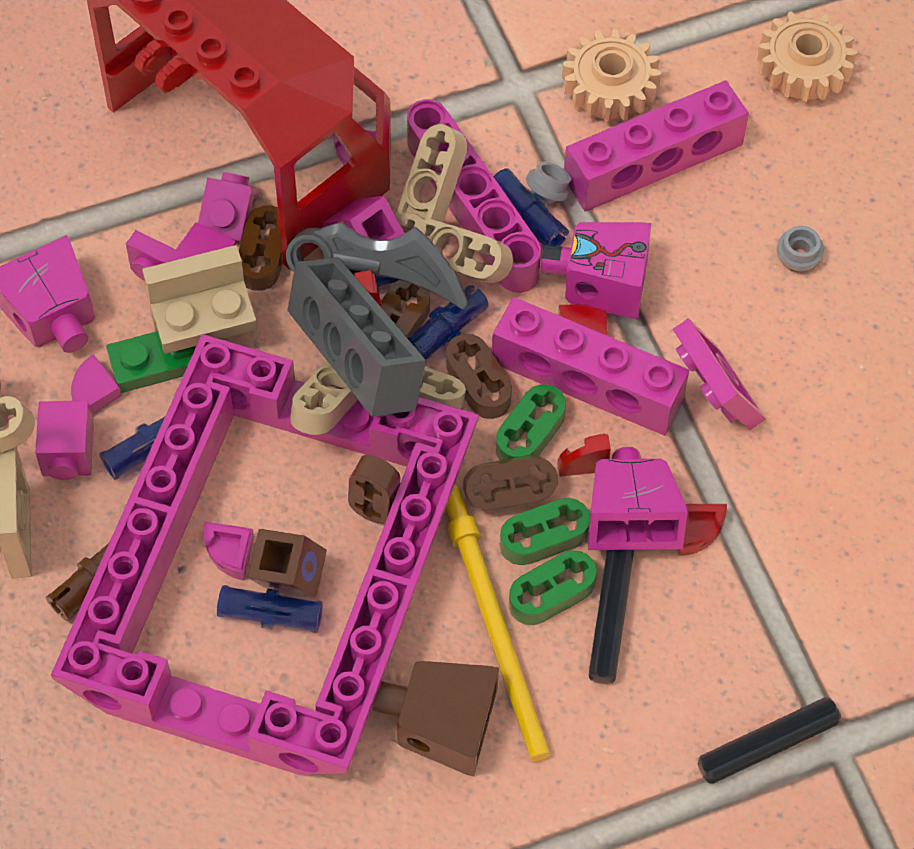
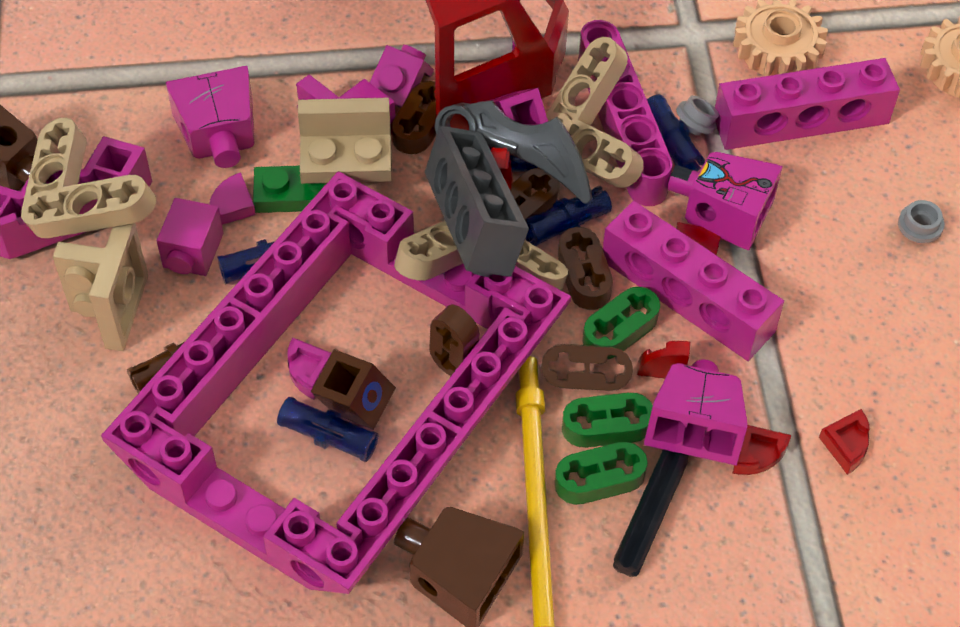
camera: 15 degrees right, 5 degrees down
(720, 381) = (811, 316): dark pink plate -> none
(781, 495) = (847, 440): none -> red tile

